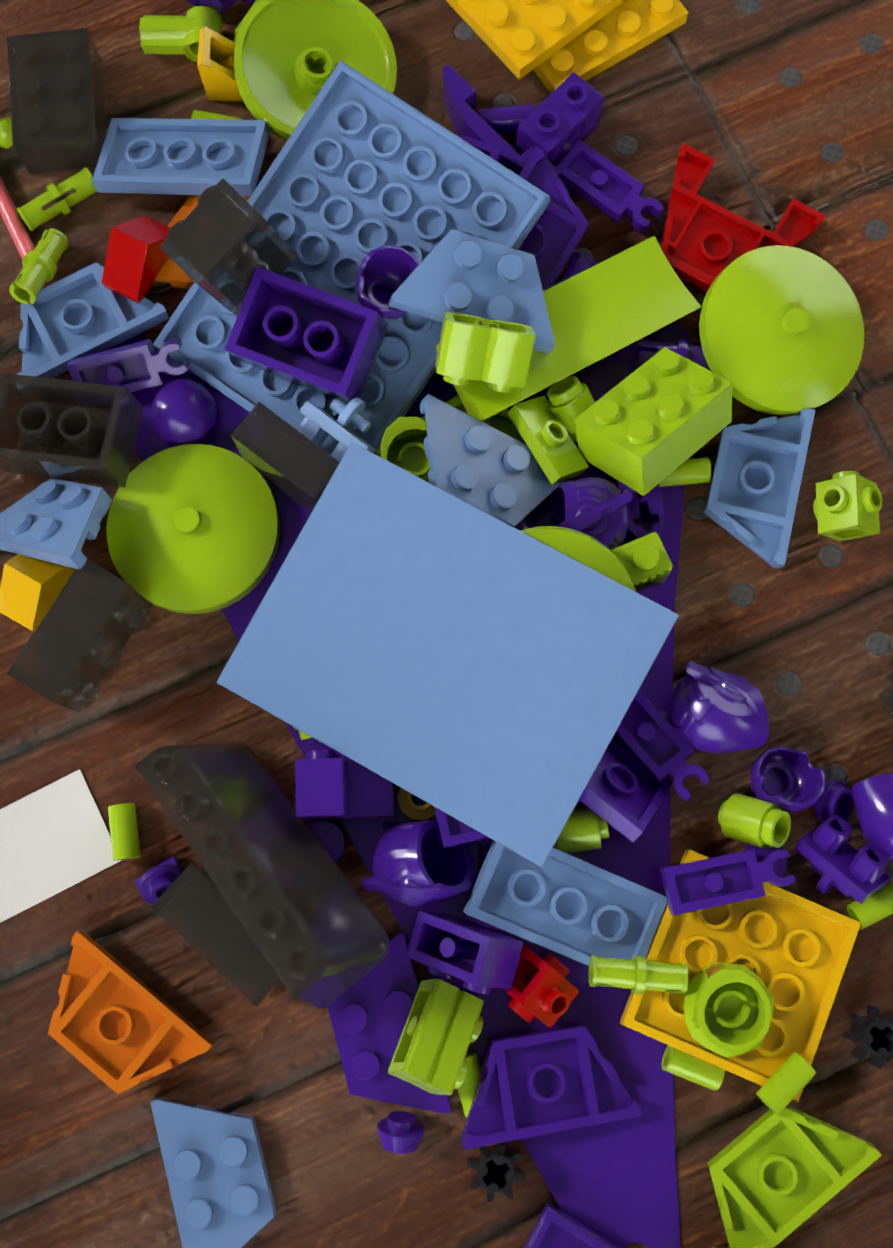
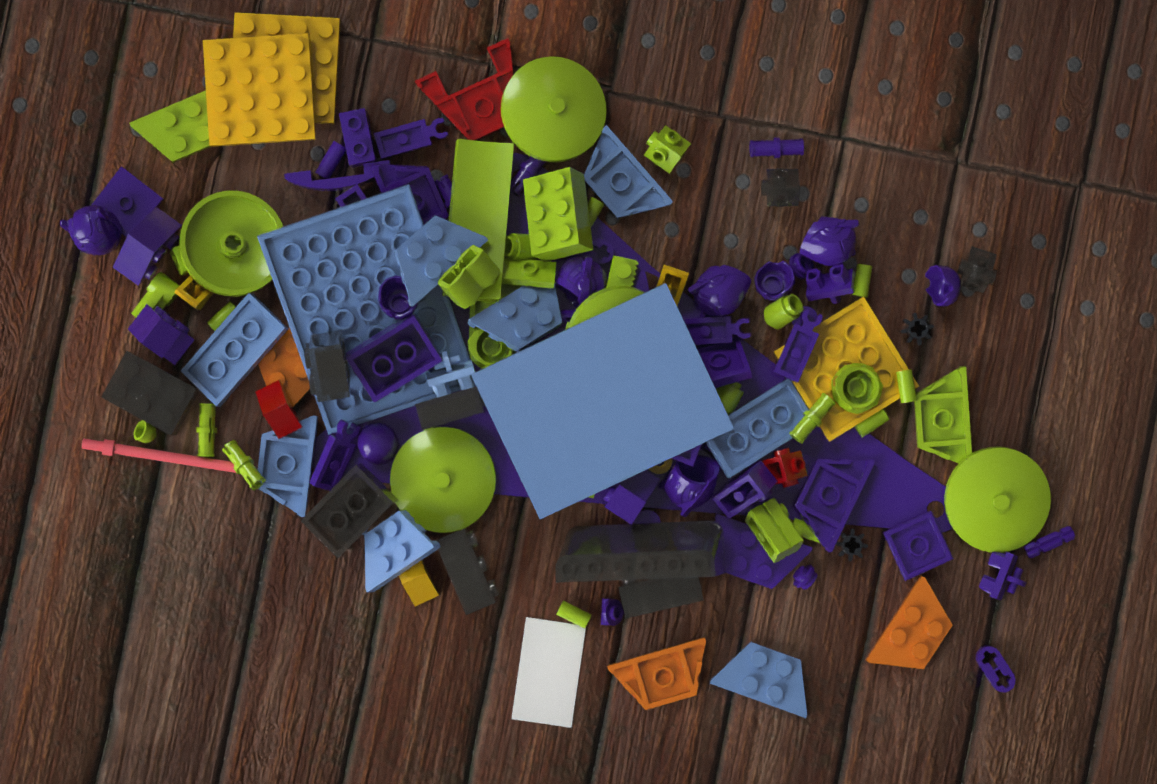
camera: 55 degrees left, 10 degrees up
(137, 52) = (161, 333): none -> dark purple brick
(685, 641) = (675, 281): none -> yellow slope

